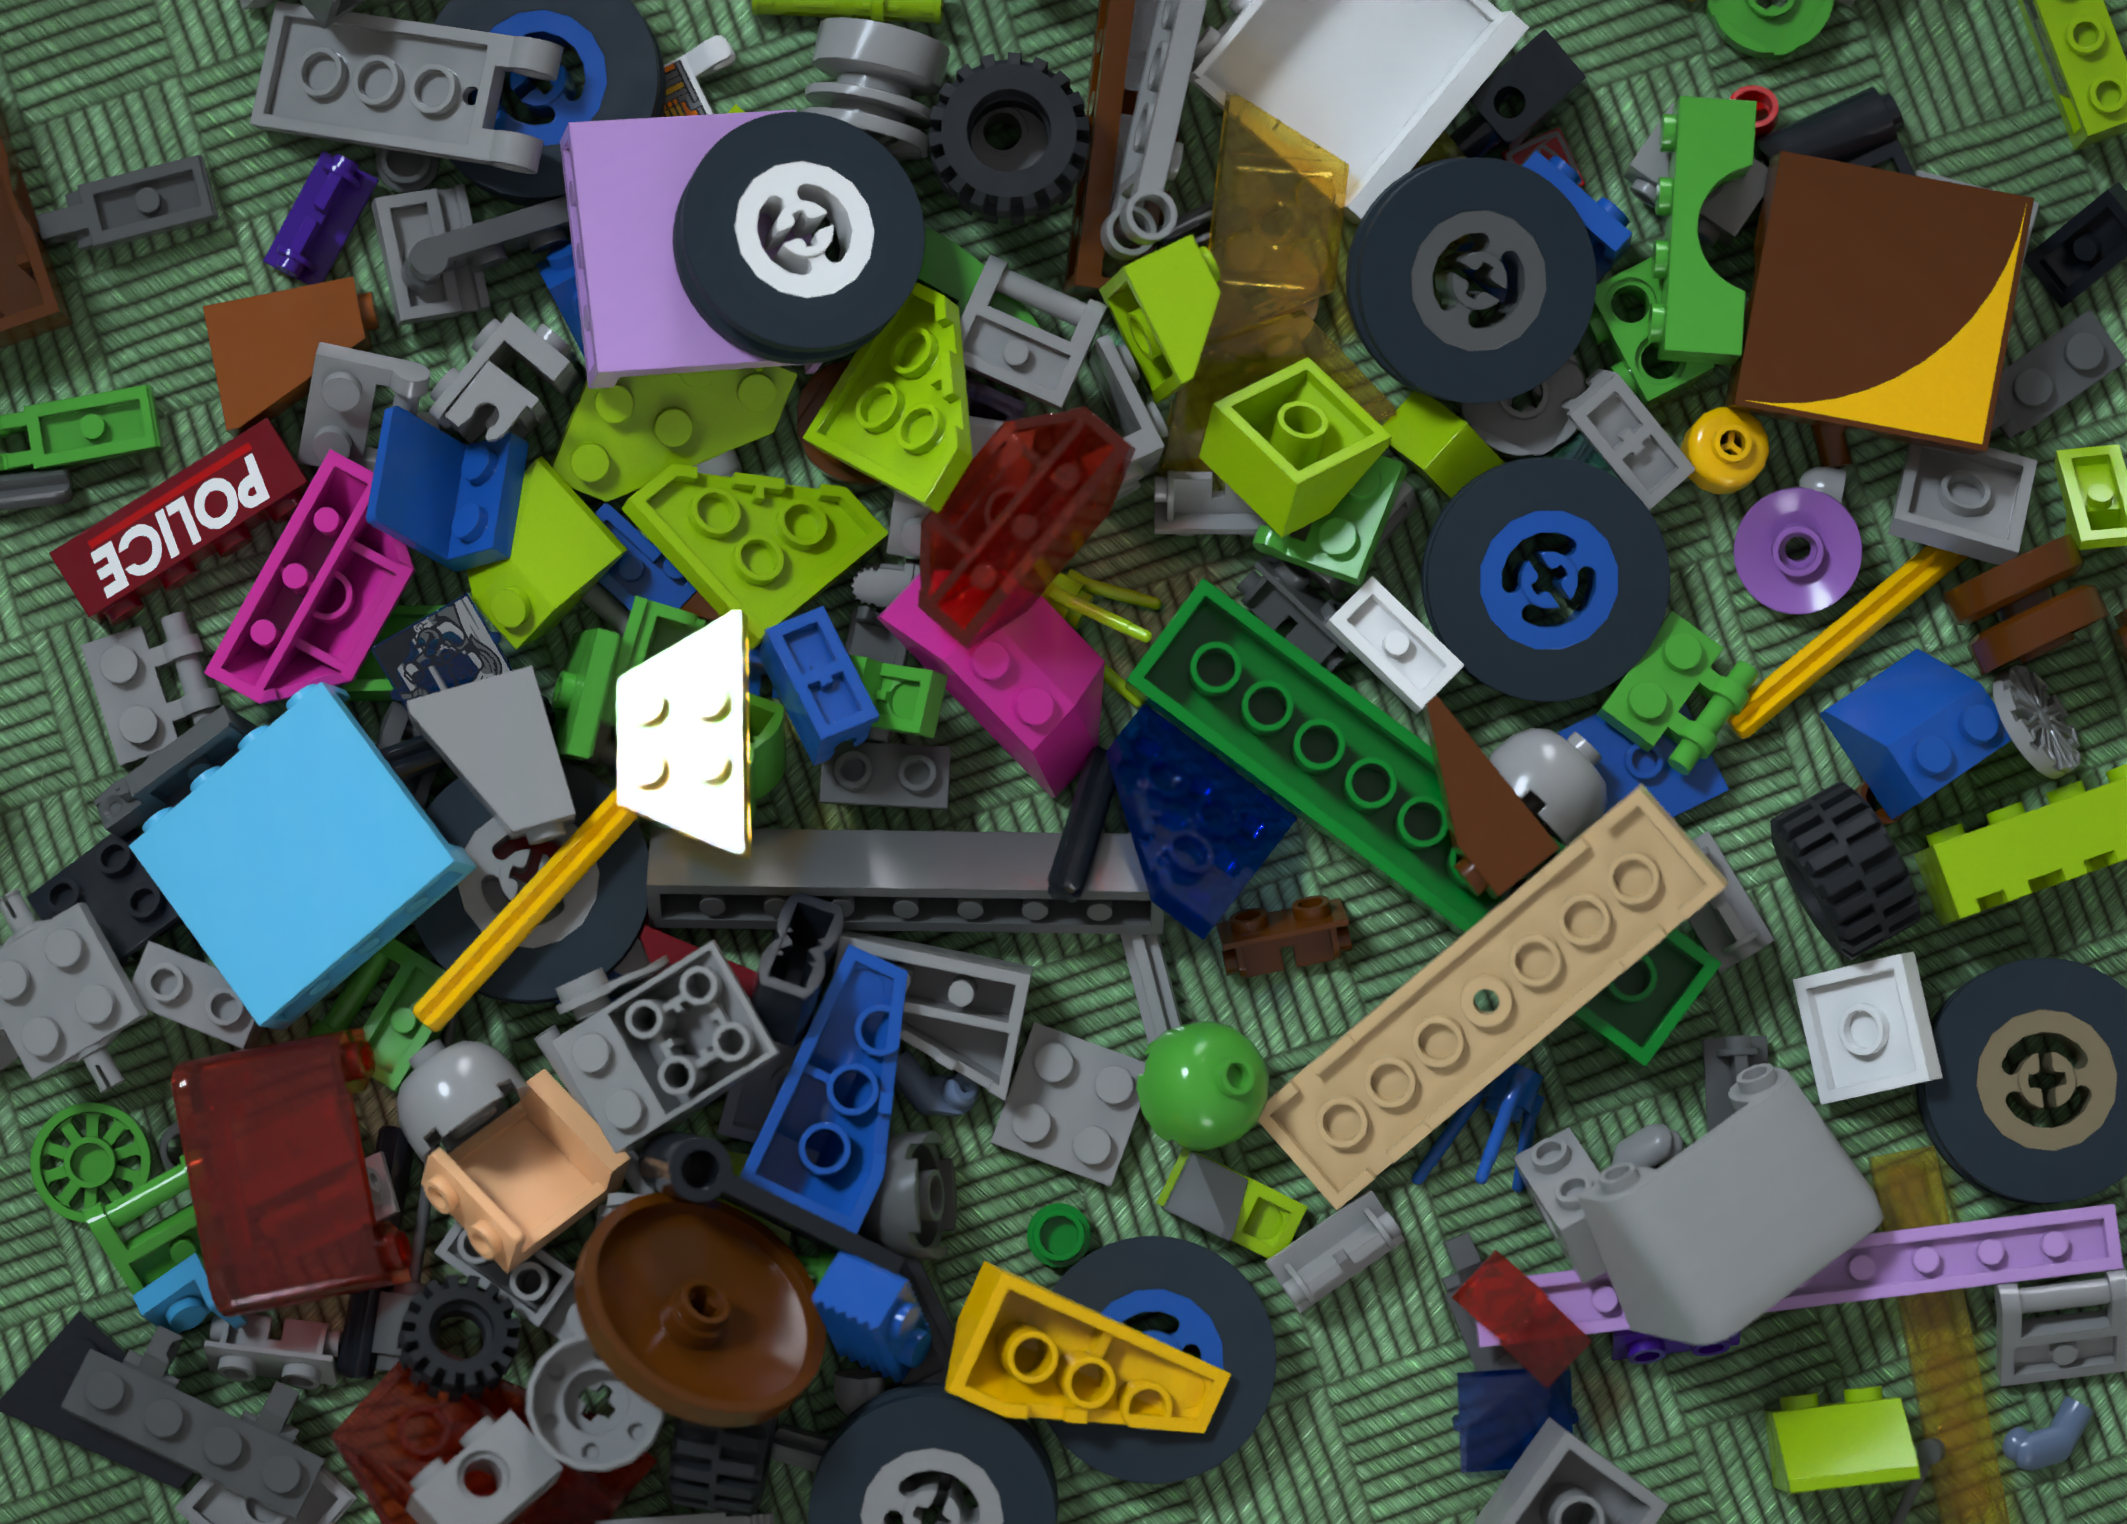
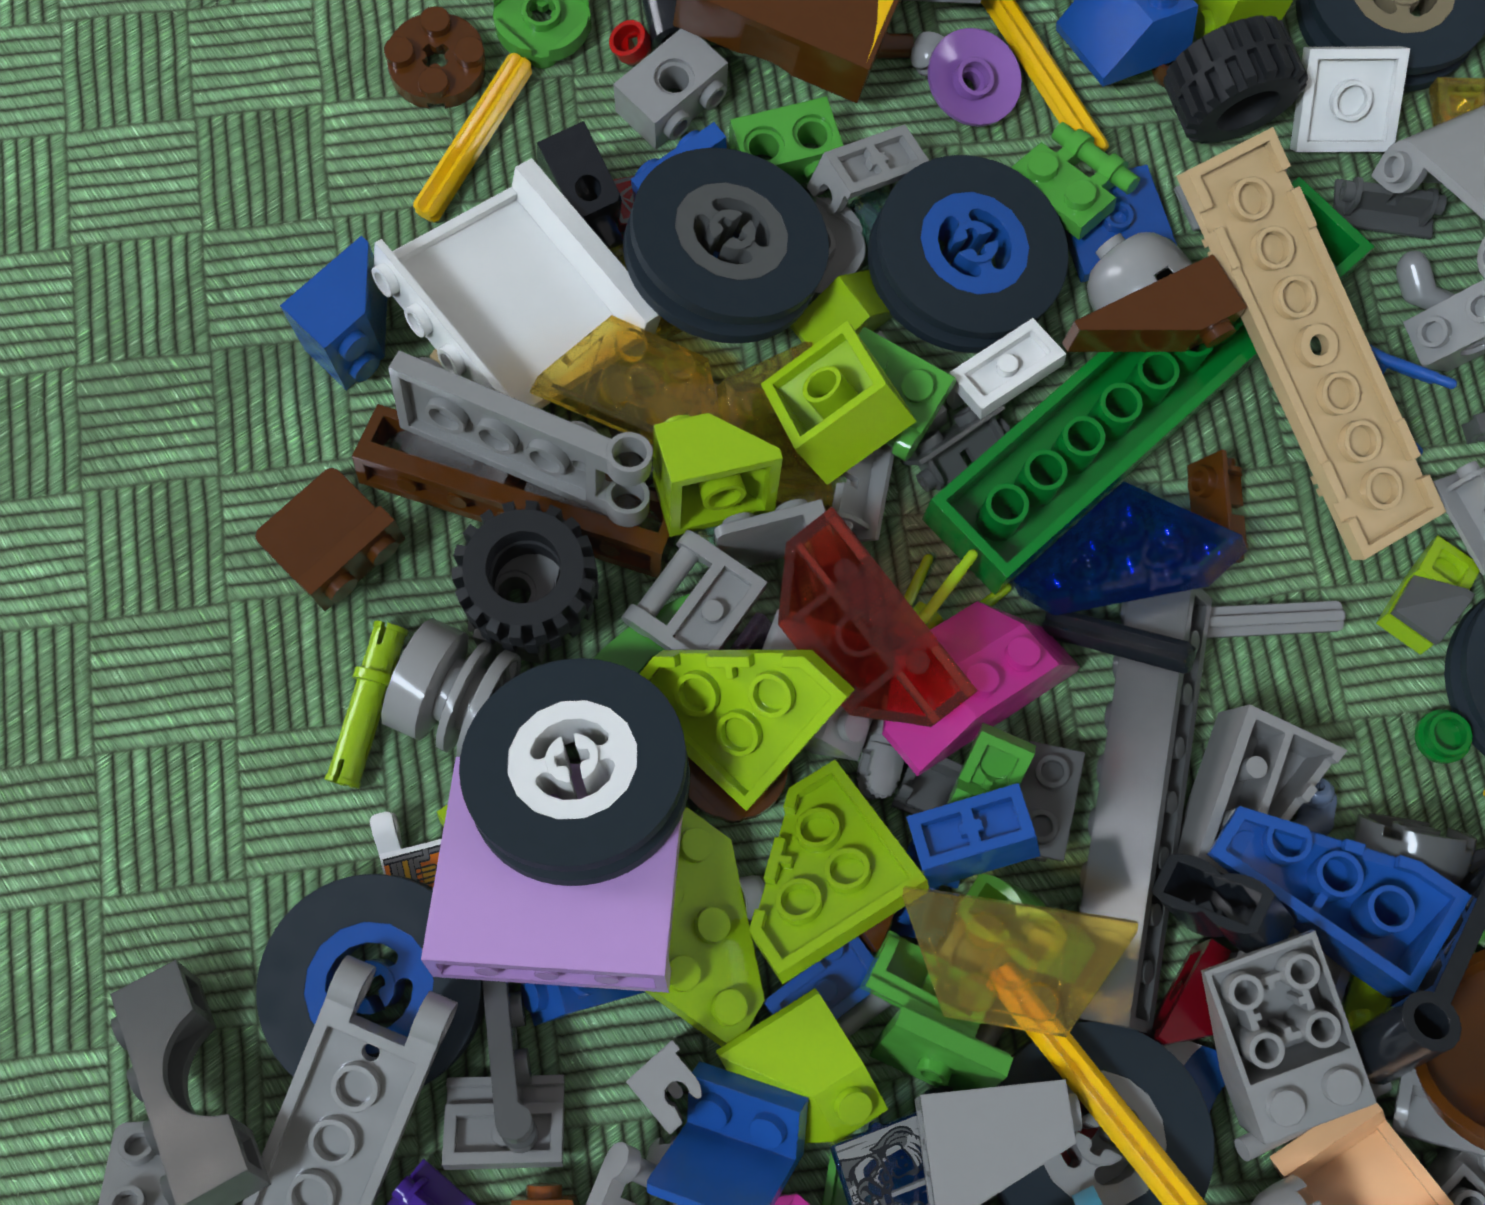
camera: 85 degrees left, 10 degrees down
(406, 171) = (422, 1131): dark grey plate -> none
(502, 345) = (621, 1031): light grey bracket -> none
(592, 991) = (1218, 1099): light grey plate -> none
(1071, 1105) = (1338, 700): light grey plate -> none
(1202, 1085) = (1343, 589): bright green cylinder -> none
(1698, 309) = (777, 90): bright green arch -> none
(1713, 467) = (889, 102): yellow head -> none

